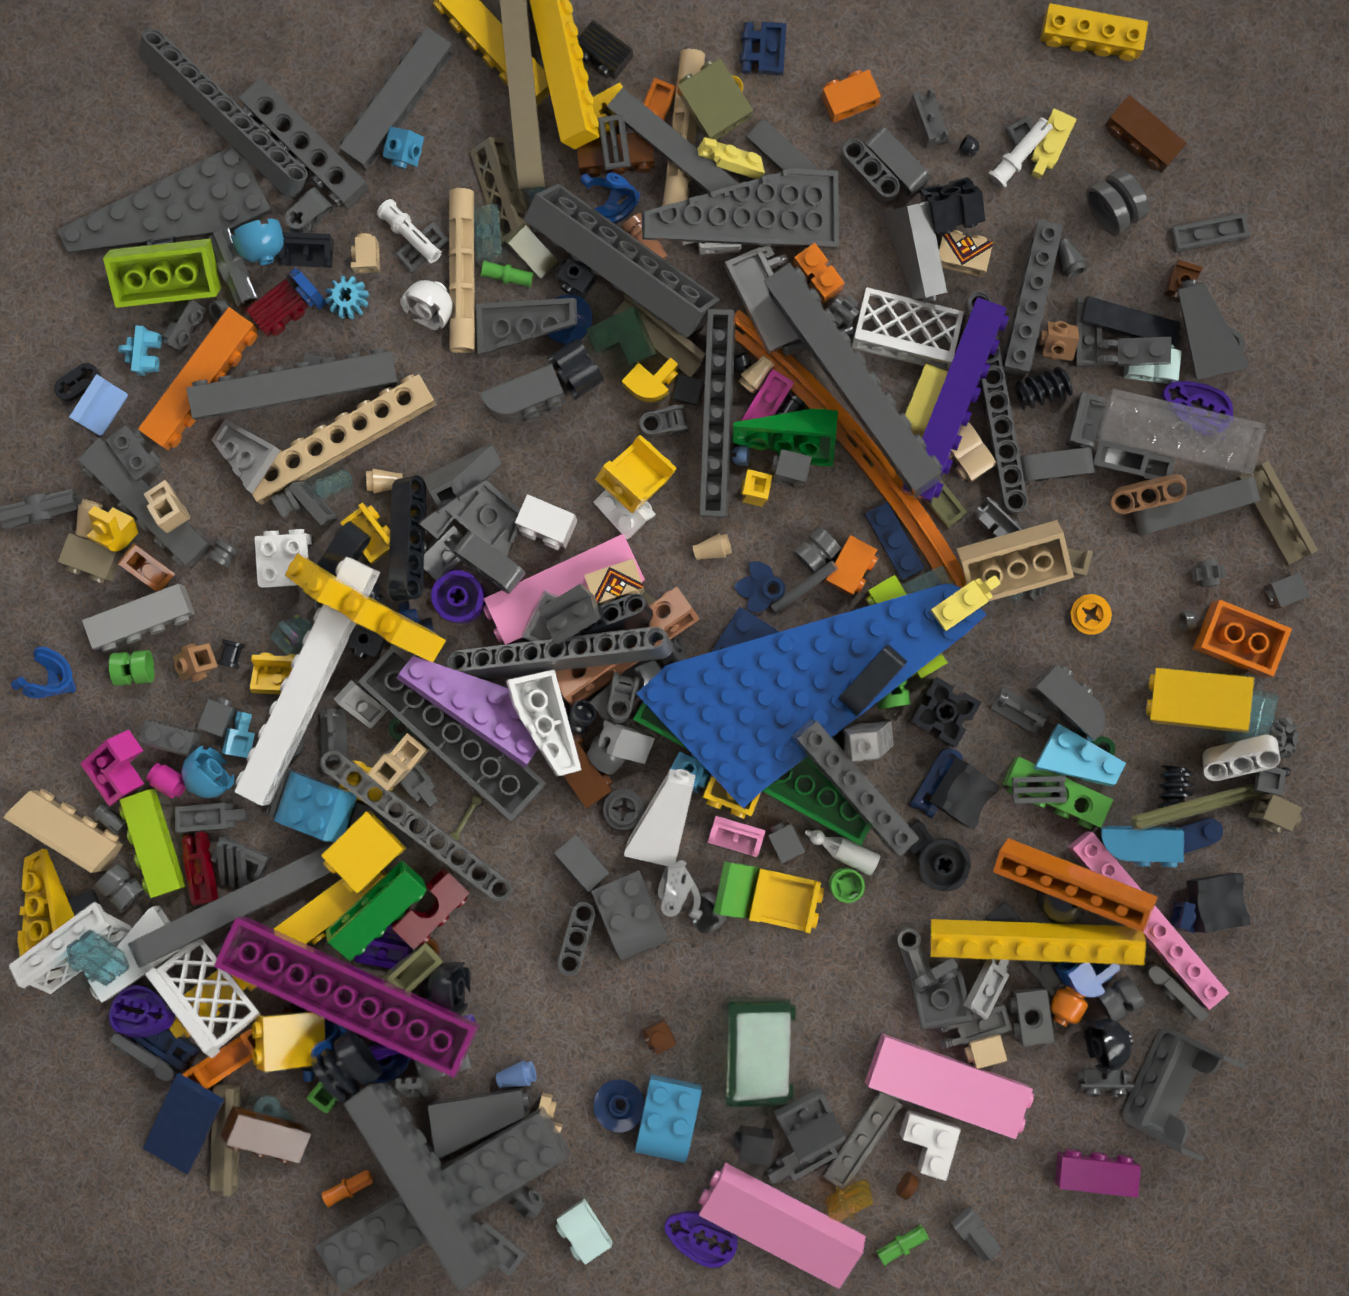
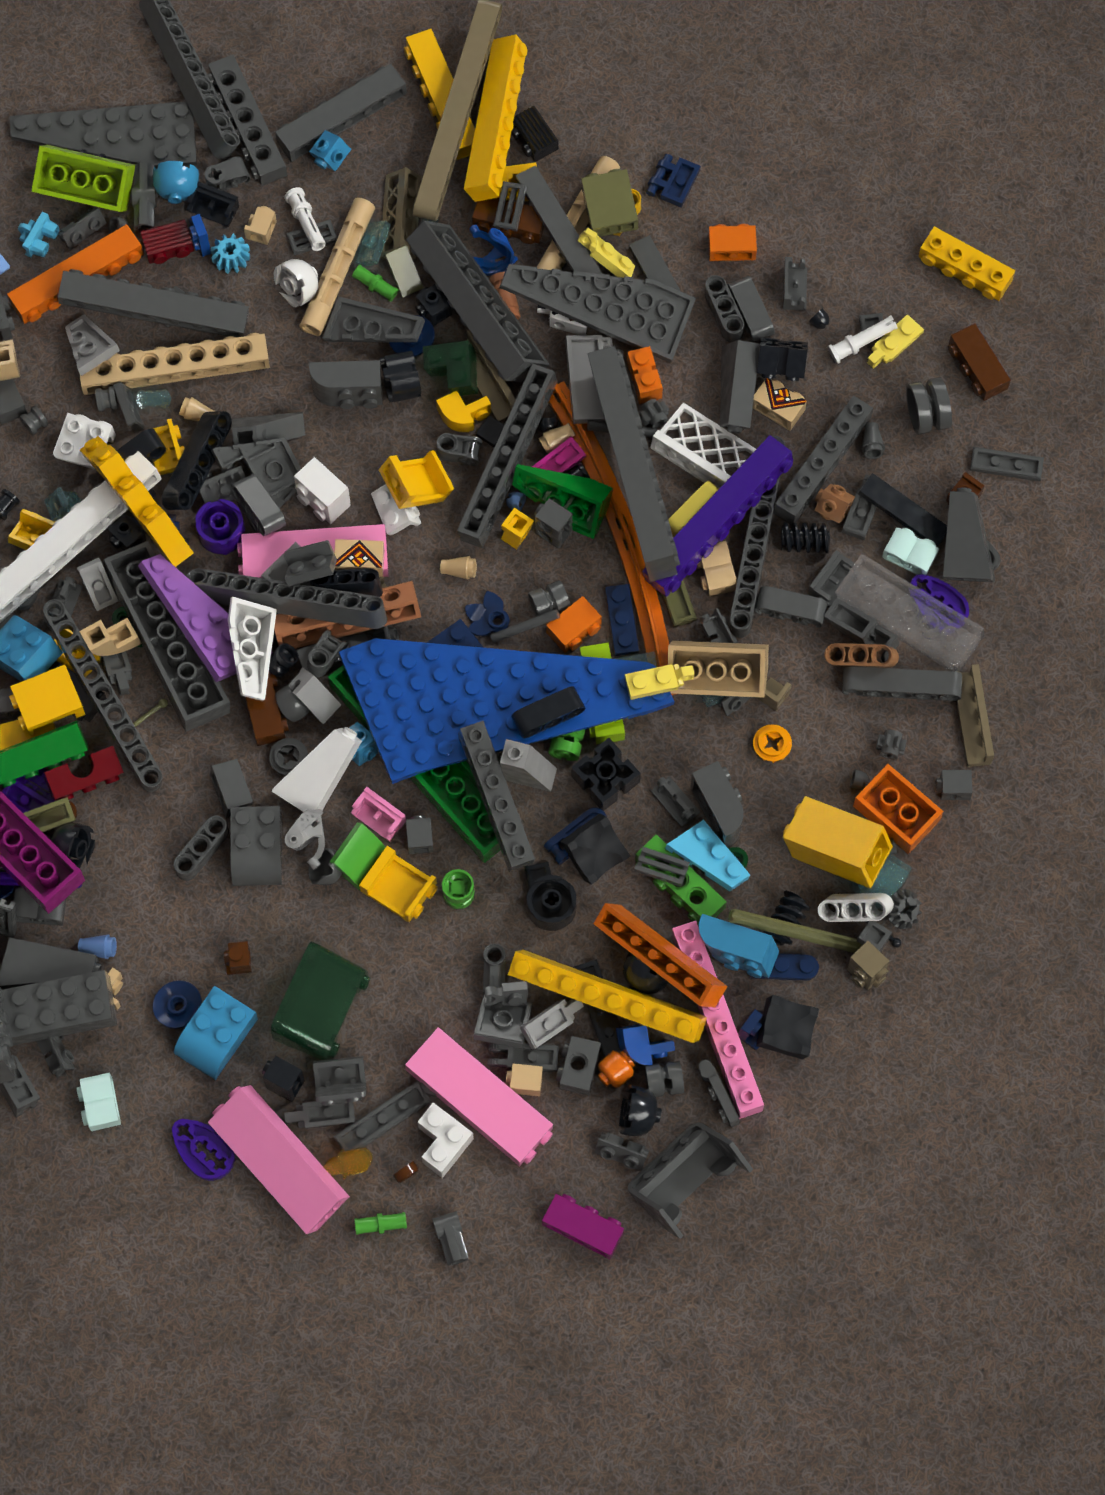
camera: 20 degrees right, 15 degrees down
(660, 97) = (566, 189): orange tile -> none
(718, 796) = (376, 773): yellow brick -> none
(846, 851) = (469, 861): white wheel -> none
(1137, 351) = (896, 533): dark grey hinge -> none

